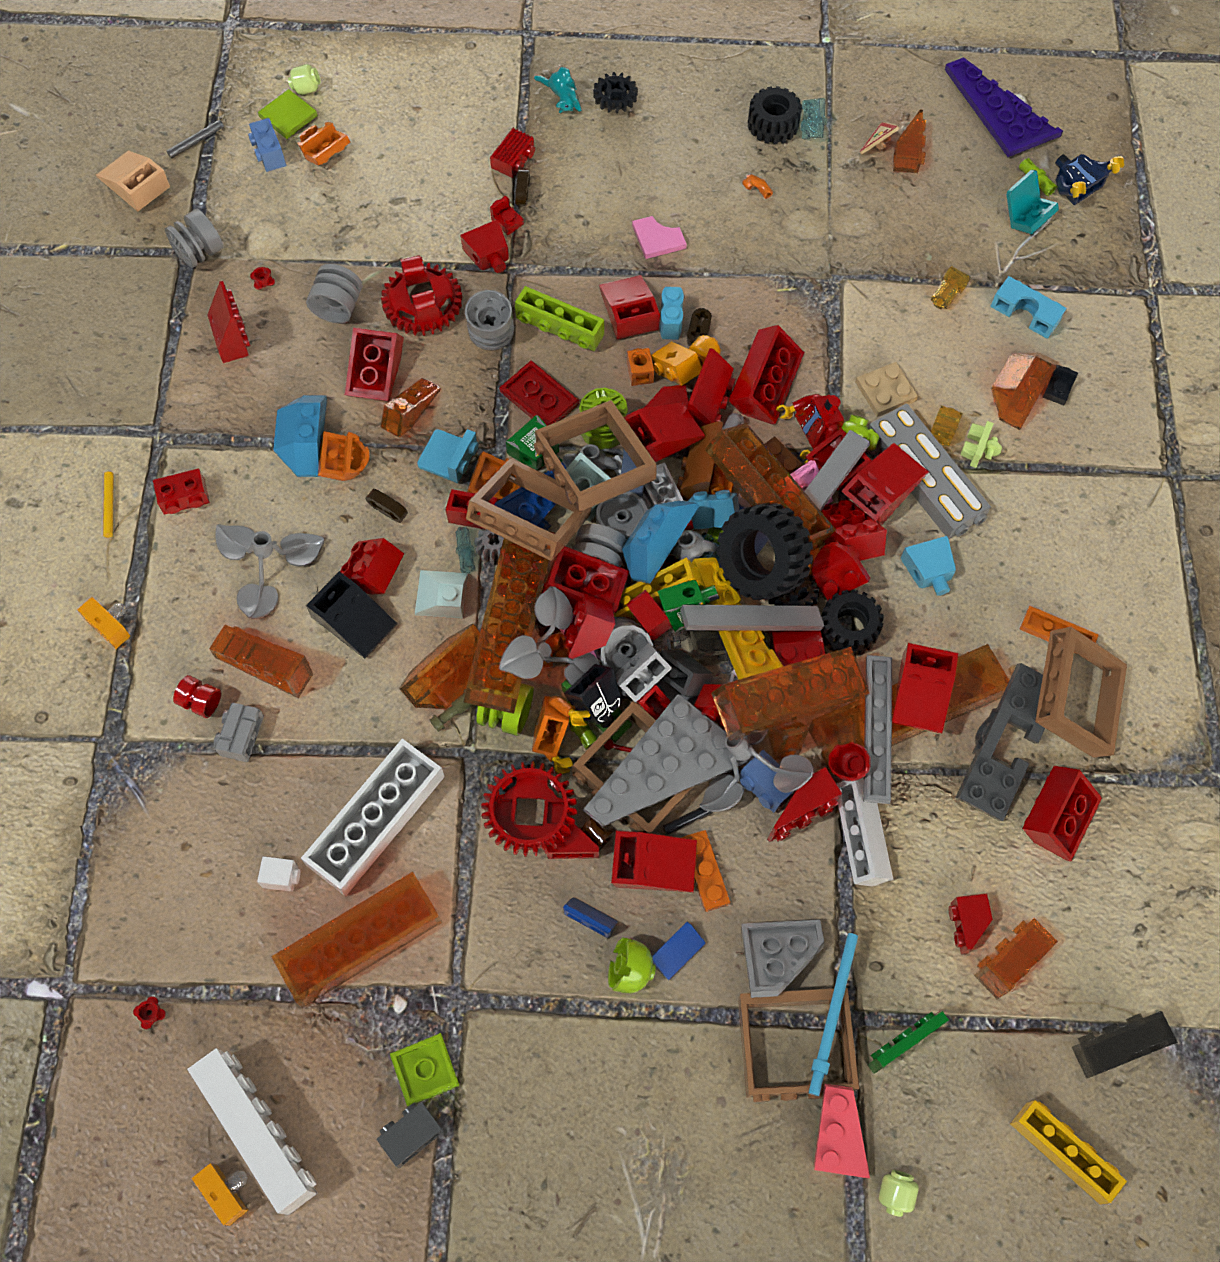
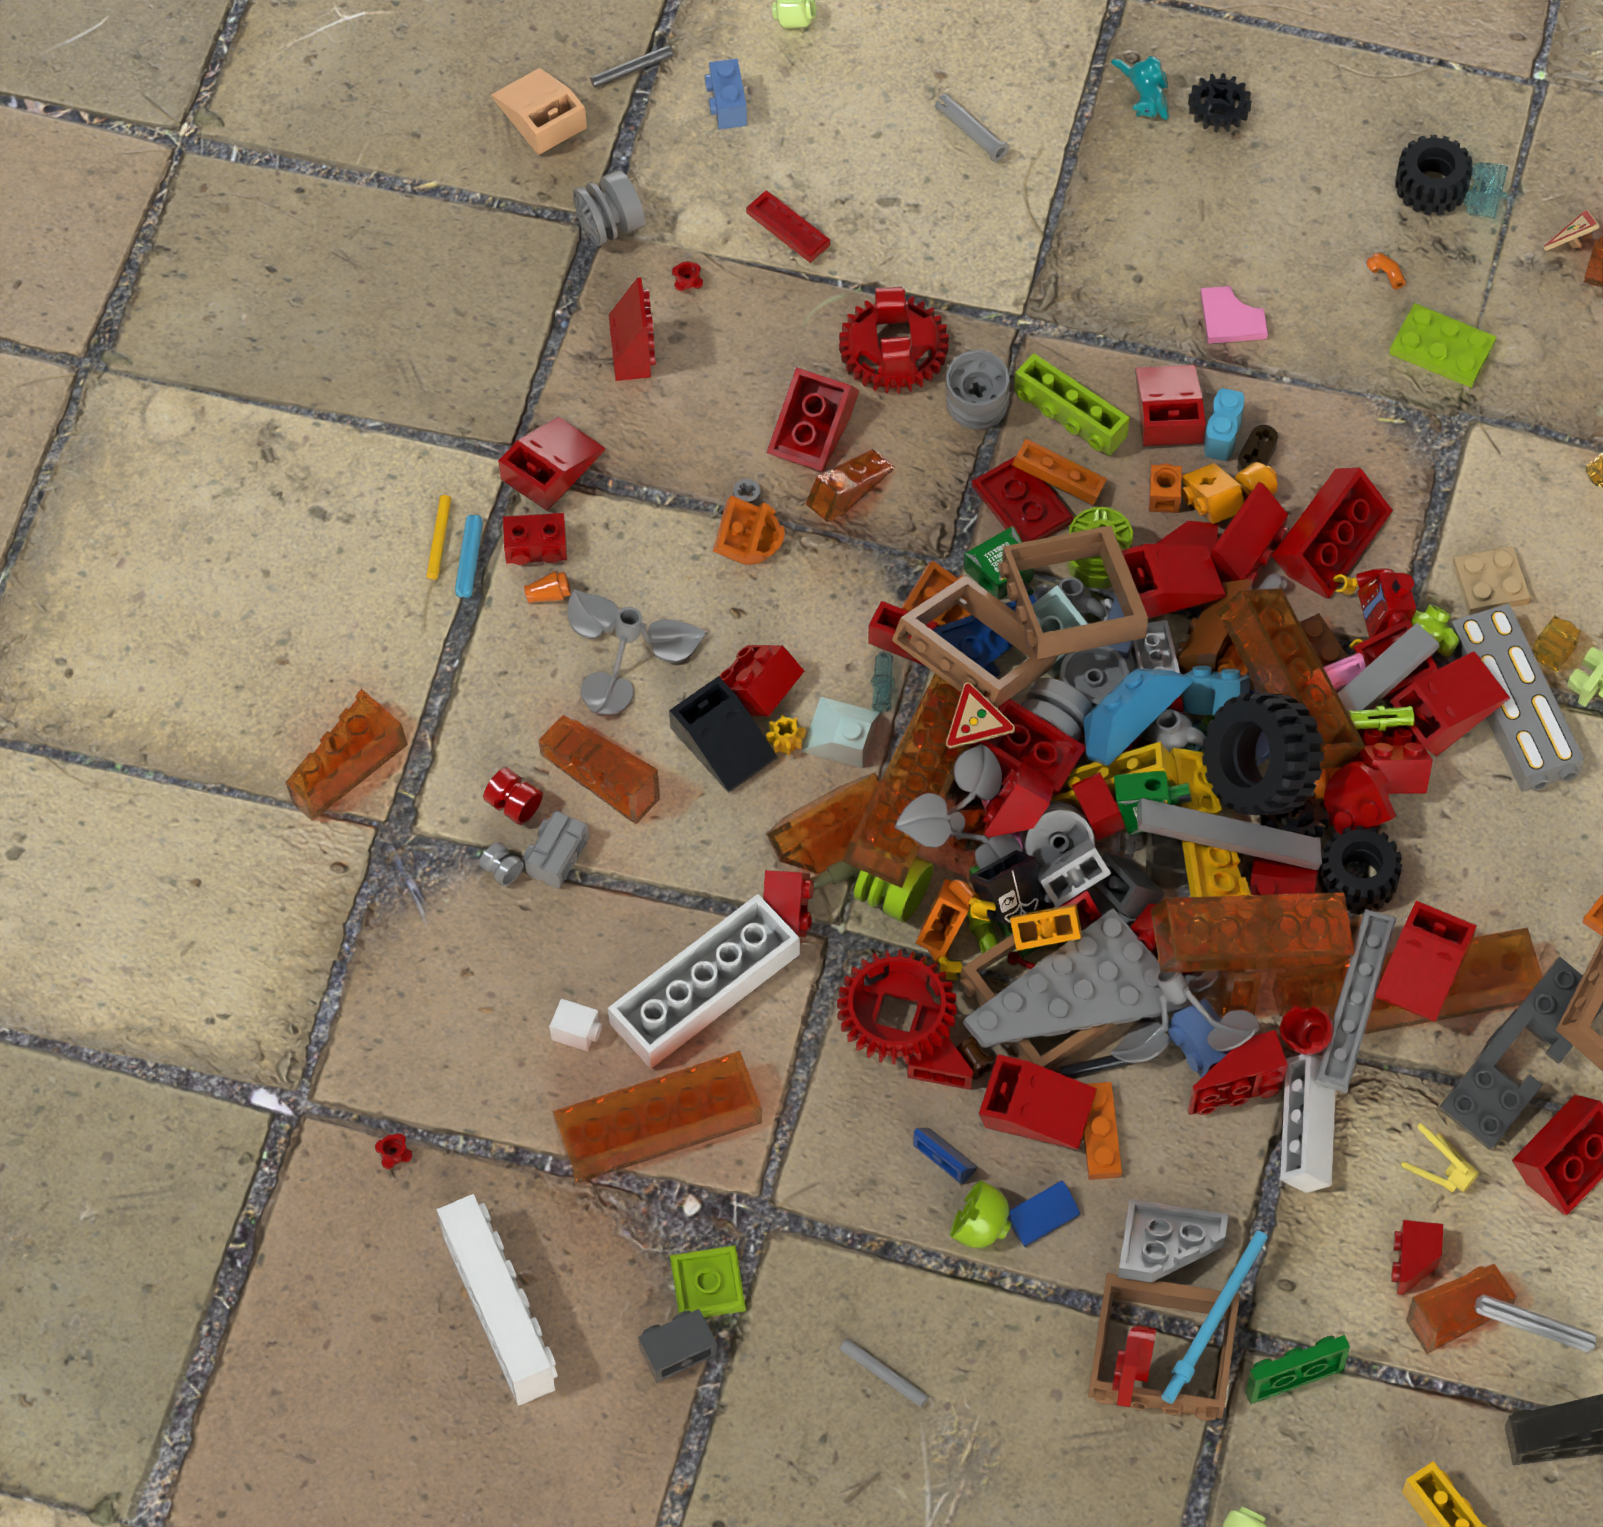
camera: 15 degrees right, 5 degrees down
(59, 692) = (347, 756): none -> clear orange wedge
(106, 621) = (414, 682): light orange piece -> none
(133, 514) = (468, 556): none -> medium azure axle
(181, 431) = (548, 461): none -> red slope
(195, 751) = (501, 864): none -> light grey wheel
(198, 527) = (549, 588): none -> orange cone
(221, 1192) = (447, 1361): light orange piece -> none
(288, 113) = (763, 53): lime tile -> none
(299, 434) = (698, 493): dark azure wedge -> none
(322, 143) = (801, 103): orange slope -> none
(329, 229) = (788, 226): none -> red plate
(334, 293) = (779, 316): light grey wheel -> none
(335, 421) = (749, 486): none -> light grey bush
(386, 505) = (793, 606): dark brown beam -> none
(400, 611) = (785, 735): none -> yellow gear
(426, 735) = (789, 896): none -> red slope
(447, 139) = (972, 128): none -> light grey pin
(448, 454) = (887, 556): medium azure bracket -> none
(485, 548) = (913, 681): light grey gear -> none
(486, 246) = (995, 288): red torso -> none
(506, 215) = (1029, 250): red bracket -> none
(512, 153) = (1058, 164): red brick -> none
(522, 187) = (1061, 214): dark brown beam -> none
(543, 568) = (976, 719): none -> piece
(561, 368) = (1059, 471): none -> orange plate
(581, 1116) = (884, 1373): none -> light grey bar
(632, 721) = (1046, 927): none -> light orange brick
(783, 1073) = (1133, 1362): none -> red slope
(809, 230) = (1442, 345): none -> lime plate
(839, 1134) = (1188, 1455): coral wing -> none
(854, 501) = (1401, 717): none -> lime pin
(930, 564) = (1486, 817): medium azure torso -> none
(984, 845) = (1460, 1172): none -> light yellow plant
(1077, 960) = (1535, 1323): none -> light grey axle

